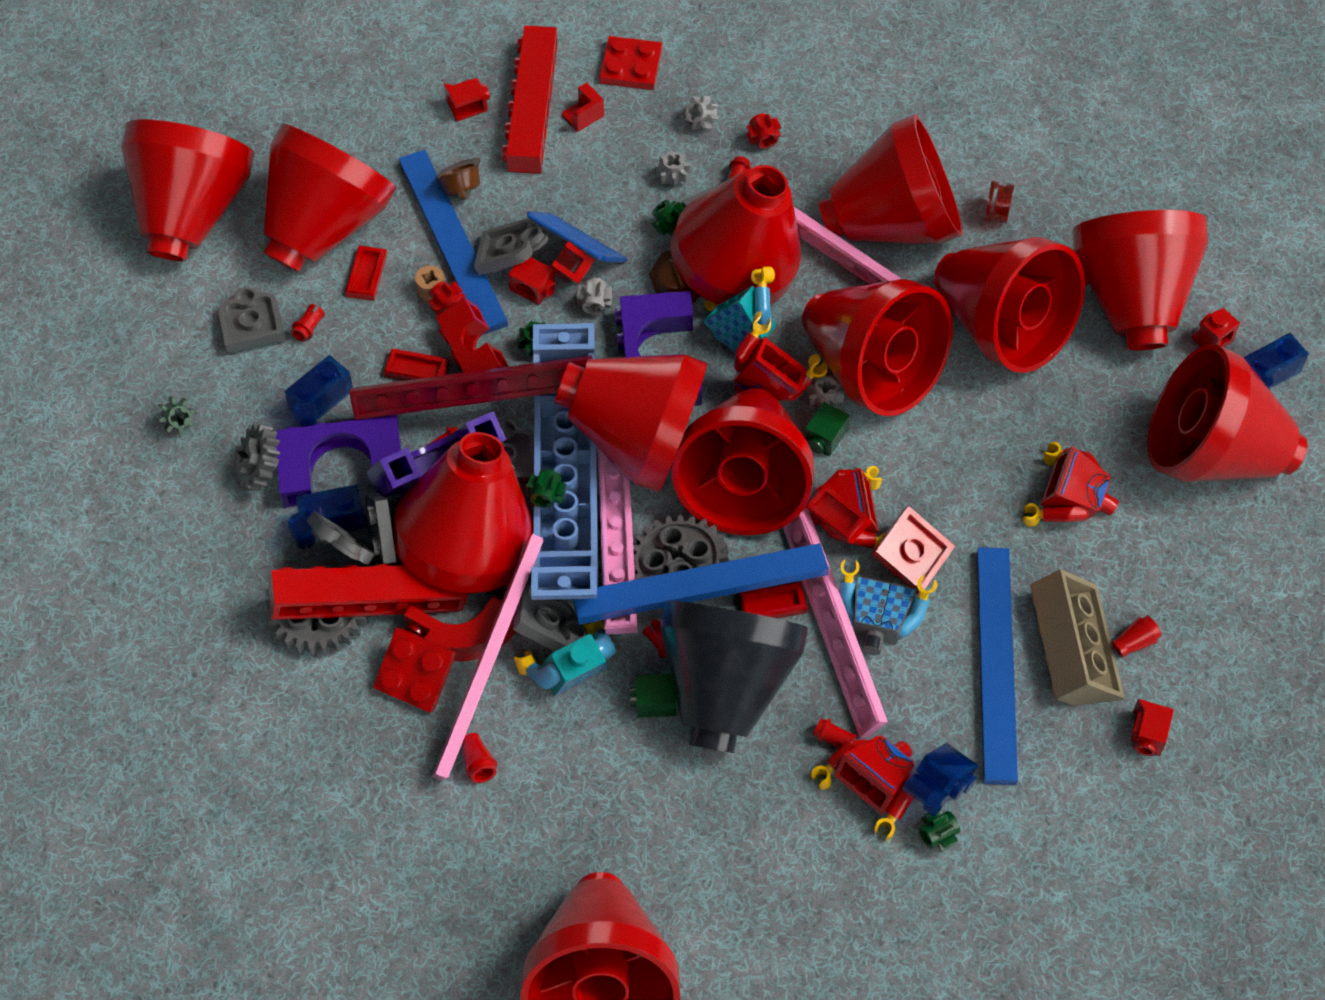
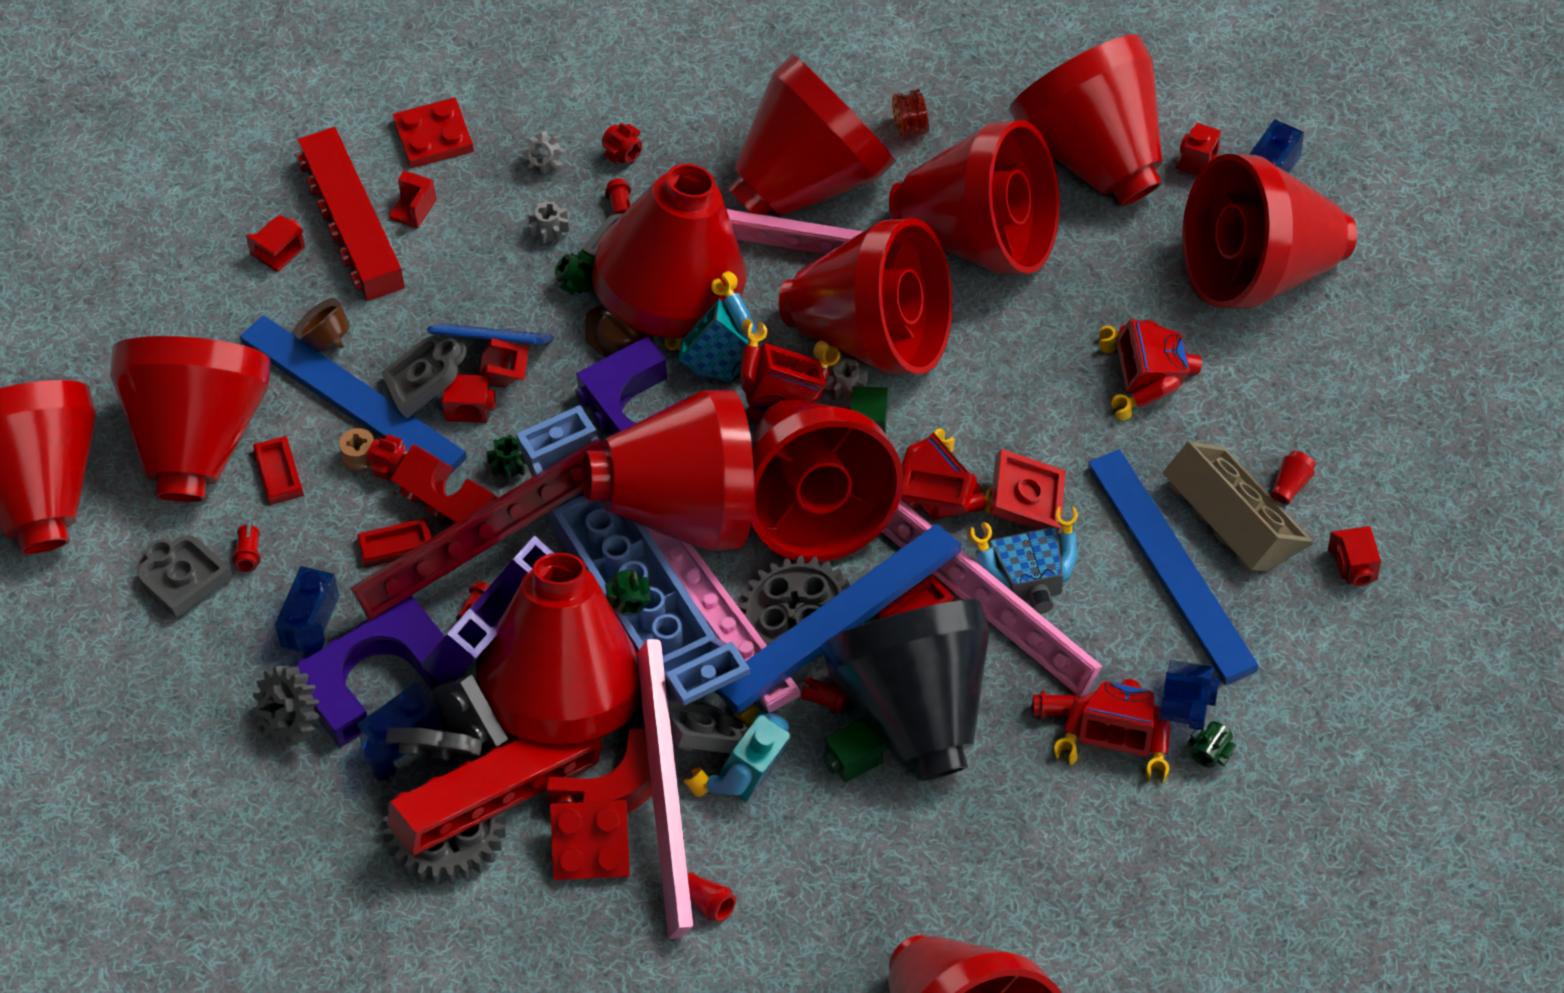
camera: 25 degrees left, 5 degrees down
(182, 419) = (163, 704): dark green gear -> none
(594, 296) = (545, 386): light grey gear -> none

